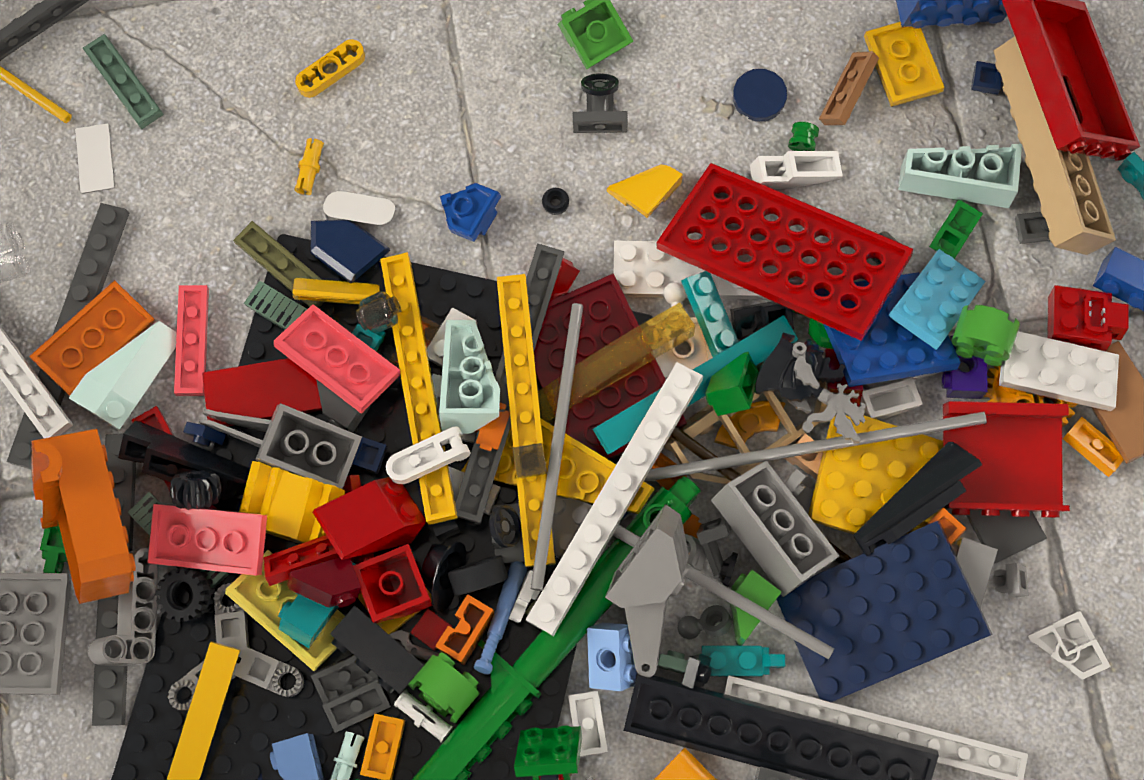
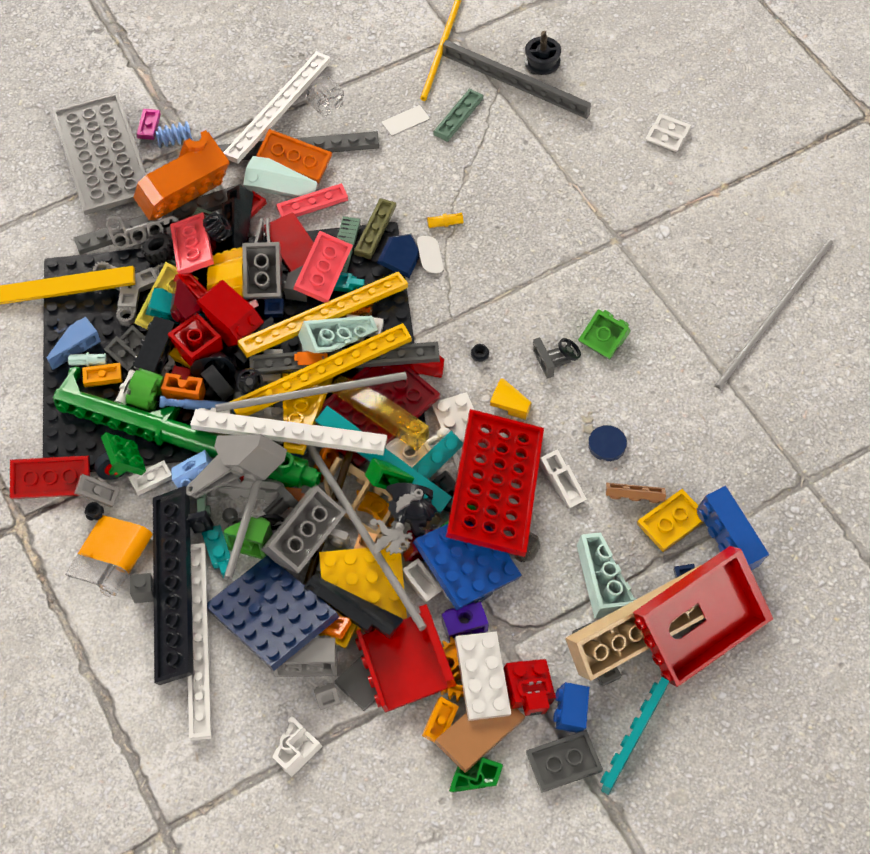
camera: 65 degrees right, 15 degrees down
(203, 434) = (255, 224): dark blue plate -> none
(332, 57) = (510, 202): yellow beam -> none
(332, 290) = (368, 255): yellow slope -> none
(378, 312) = (360, 277): clear smoke head -> none
(427, 456) = (276, 326): white plate -> none
(470, 210) = (452, 310): blue plate -> none
(529, 460) = (292, 377): clear smoke plate -> none
(803, 136) = (586, 475): green wheel -> none
(936, 299) = (502, 584): medium azure plate -> none
(956, 229) = (561, 590): green slope -> none
(985, 334) = (481, 612): bright green brick -> none

